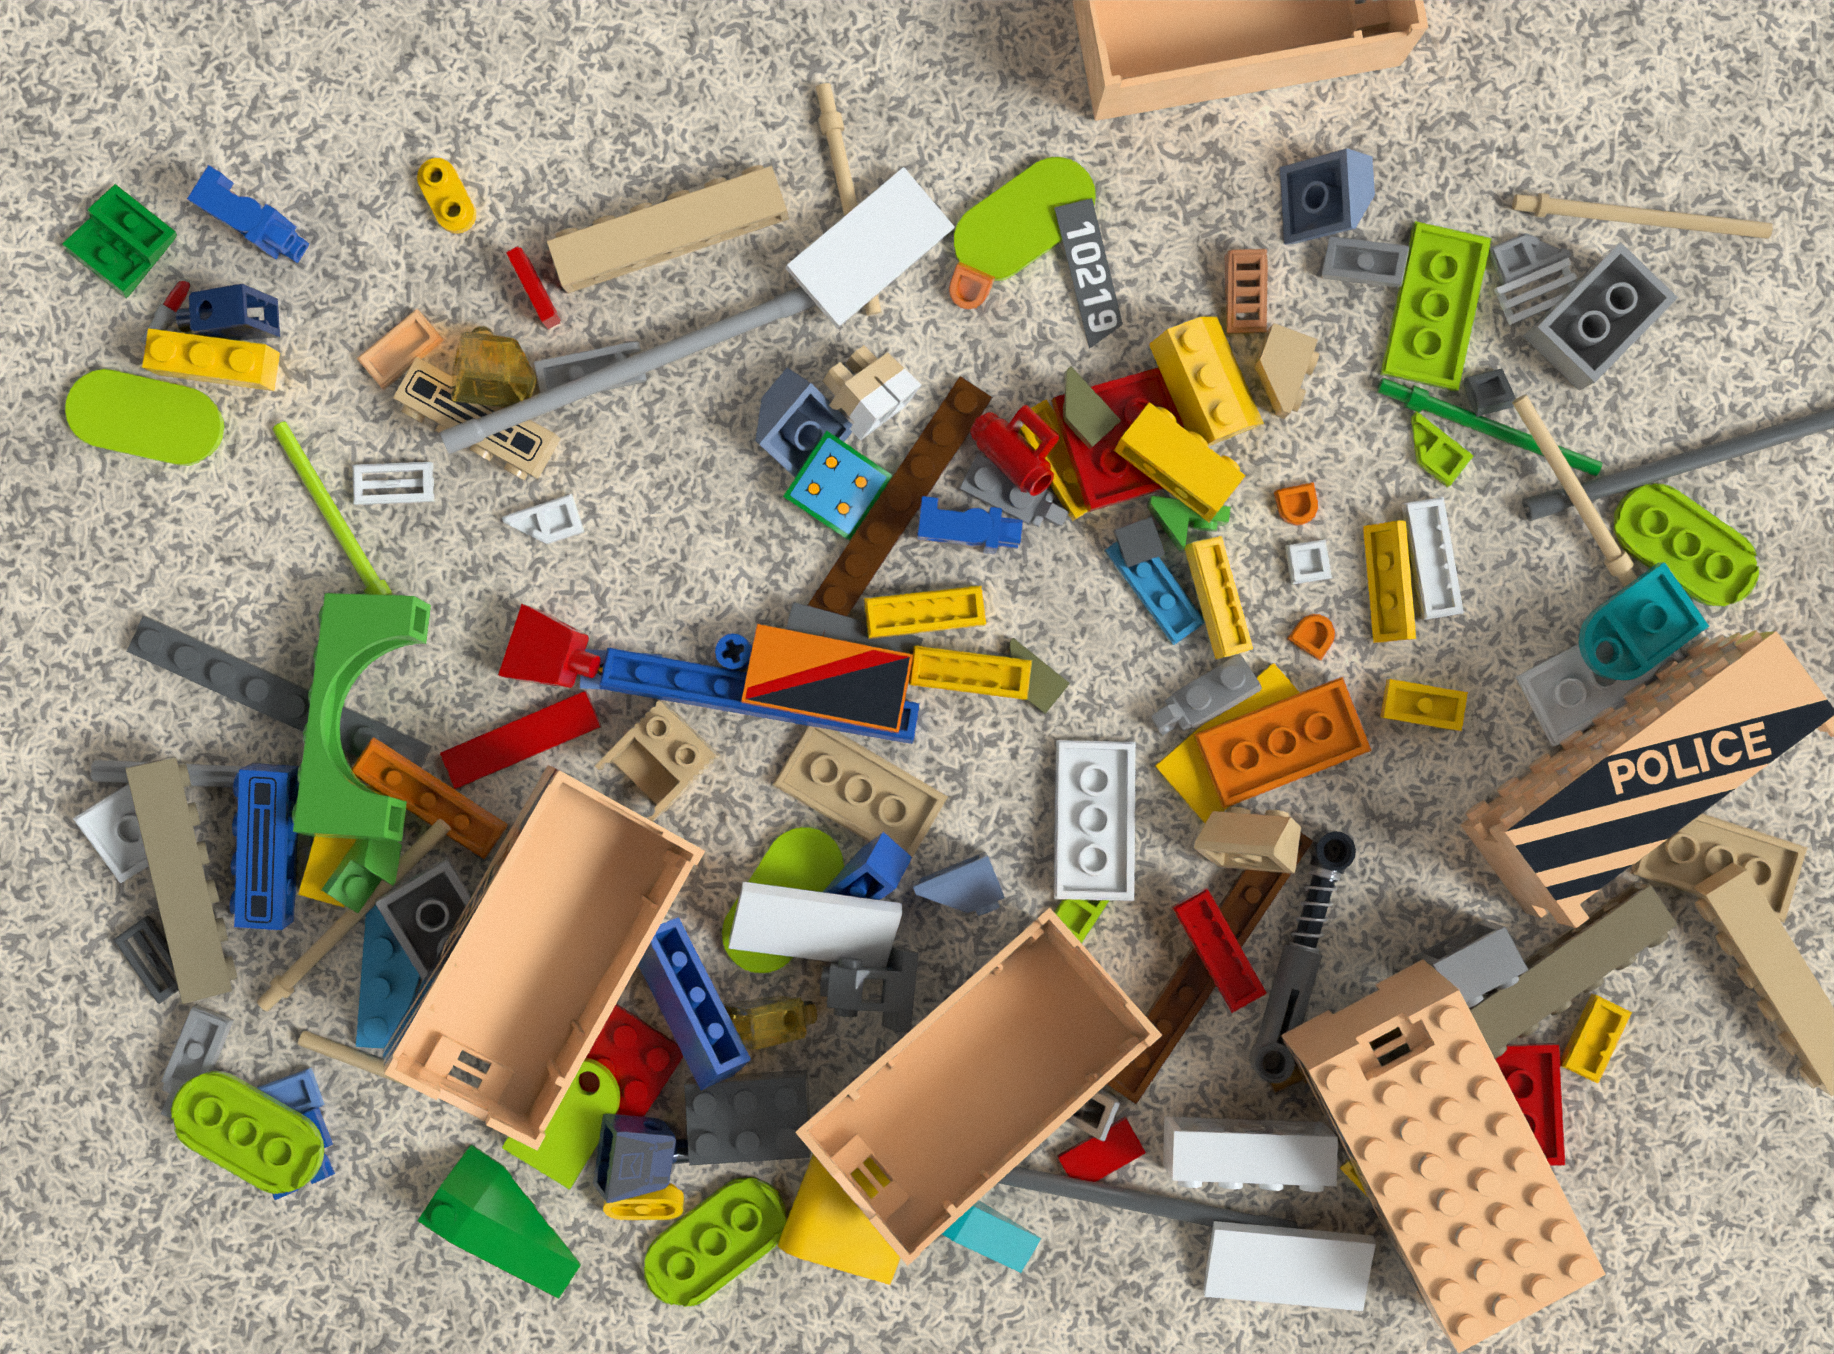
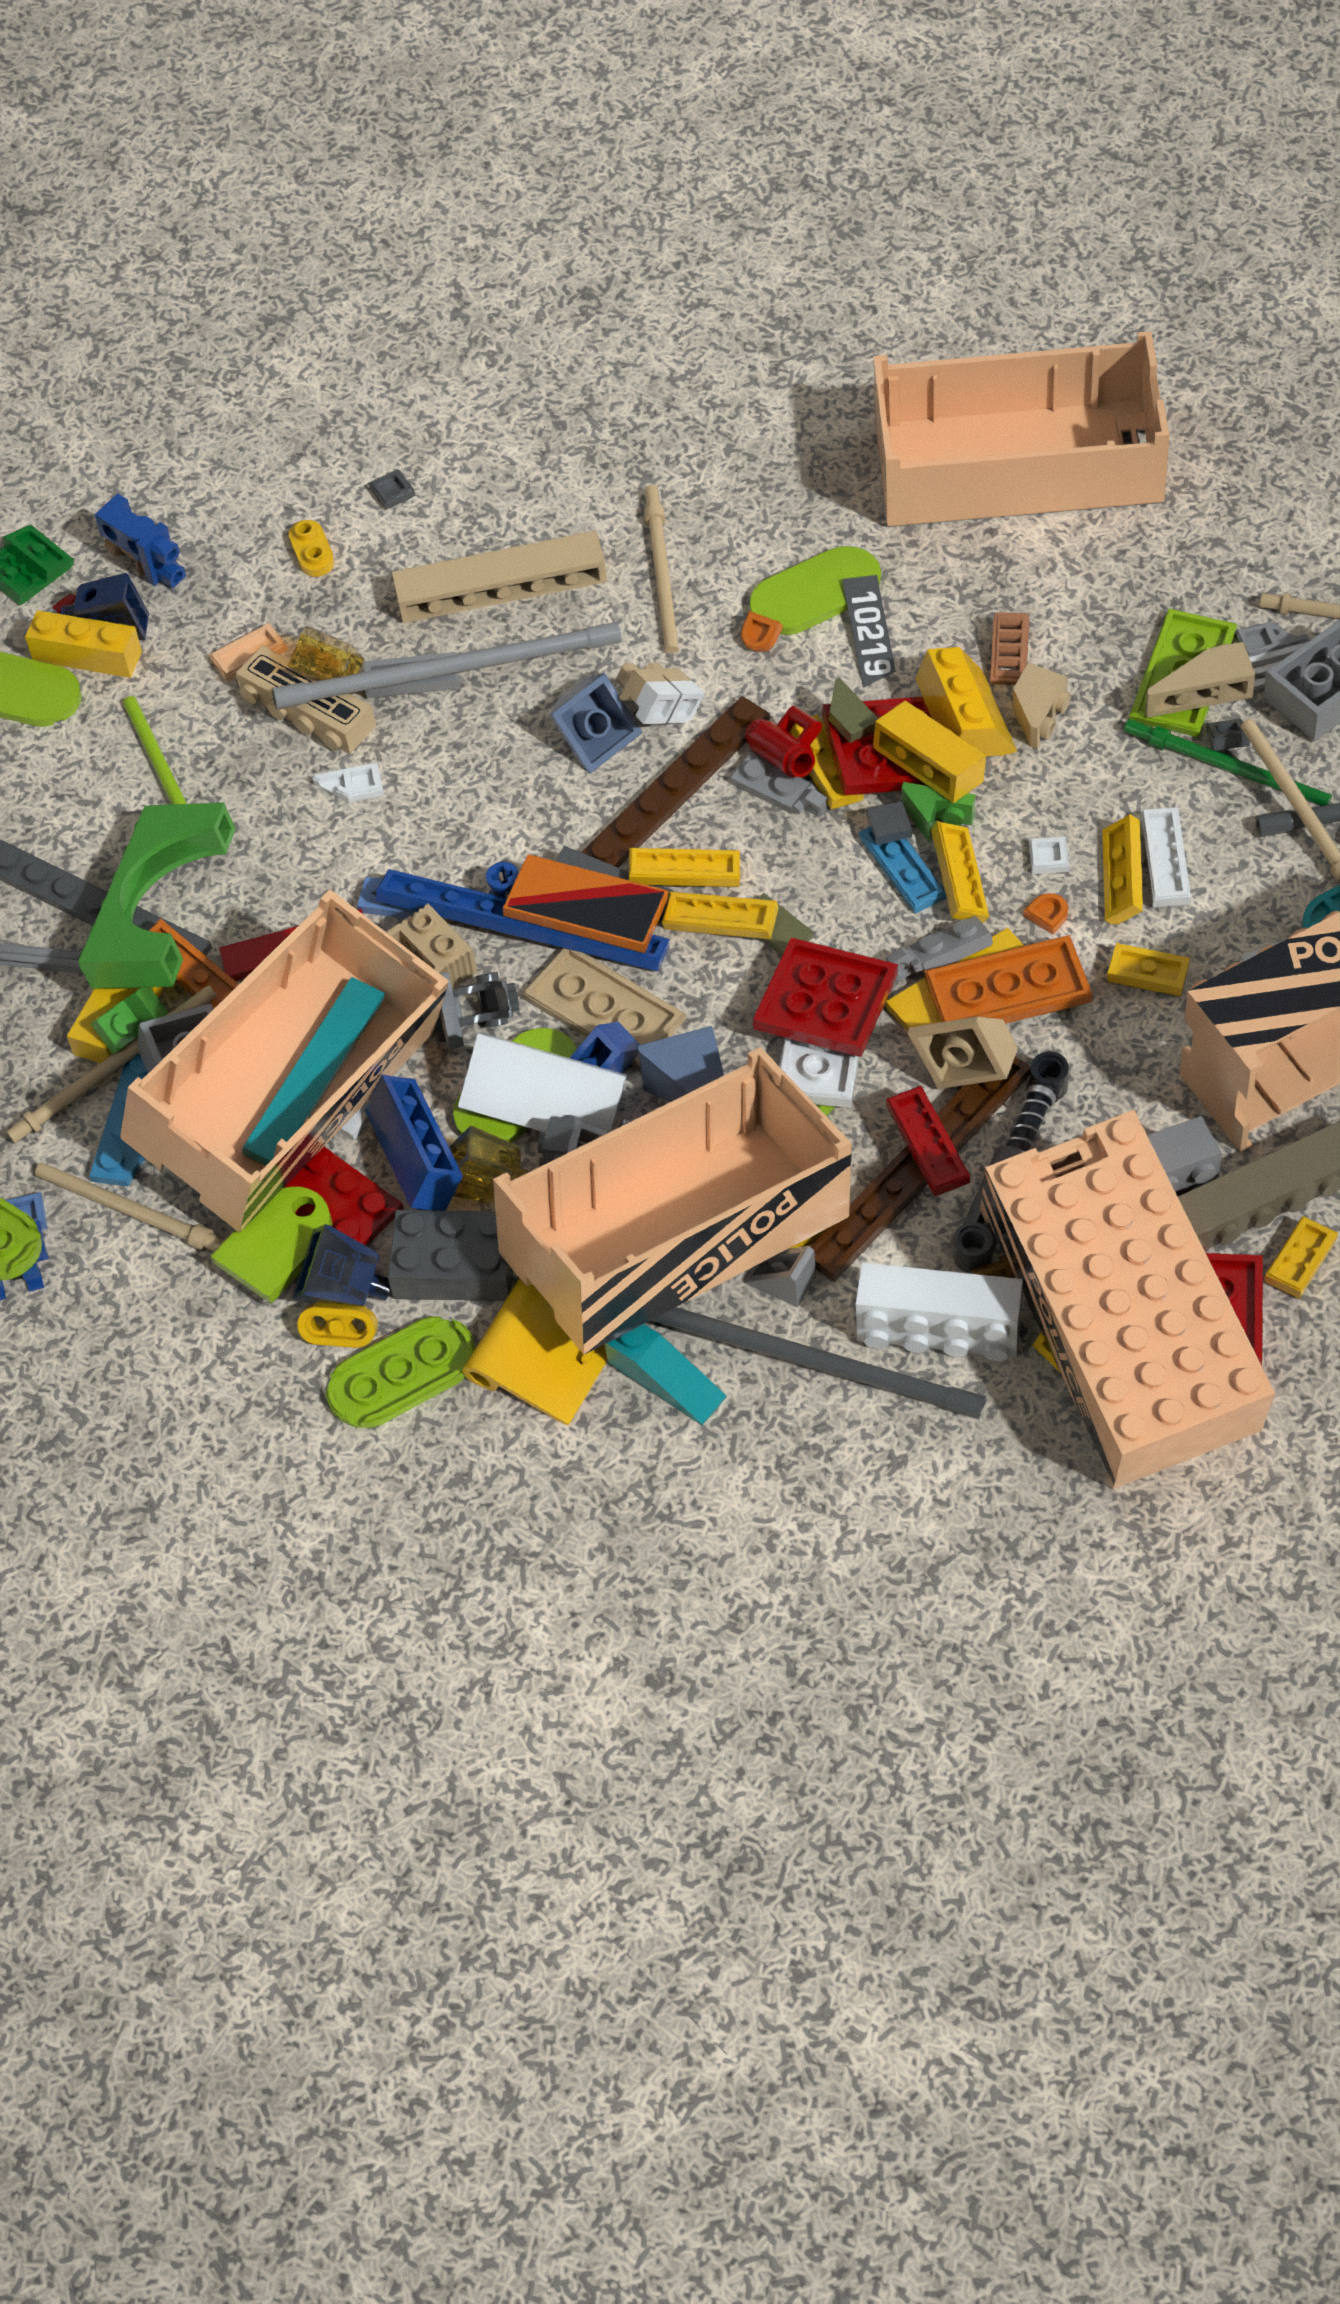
camera: 15 degrees right, 30 degrees down
(265, 846) = (44, 1001): blue brick -> none
(426, 482) = (219, 752): white tile -> none
(494, 1220) = (191, 1332): green wedge -> none
(525, 103) = (392, 489): none -> dark grey tile
(533, 287) = (374, 610): red tile -> none
(547, 651) = (334, 865): red torso -> none
(572, 934) = (315, 1069): none -> teal tile
(748, 812) = (496, 1003): none -> dark grey tile
(838, 485) = (618, 766): dark azure slope -> none
(870, 247) = (674, 597): white tile -> none
(968, 528) = (733, 794): blue hips -> none
(1096, 779) = (825, 997): none -> red plate
(1096, 1158) = (800, 1320): red tile -> none
(1288, 1266) = (972, 1429): white tile -> none
(1297, 503) = (1042, 810): orange tile -> none
(1325, 194) = (1086, 577): sand blue slope -> none
(1365, 262) = (1118, 630): light grey plate -> none
(1437, 451) = (1178, 779): lime tile -> none
(1479, 325) = (1209, 679): none -> tan slope

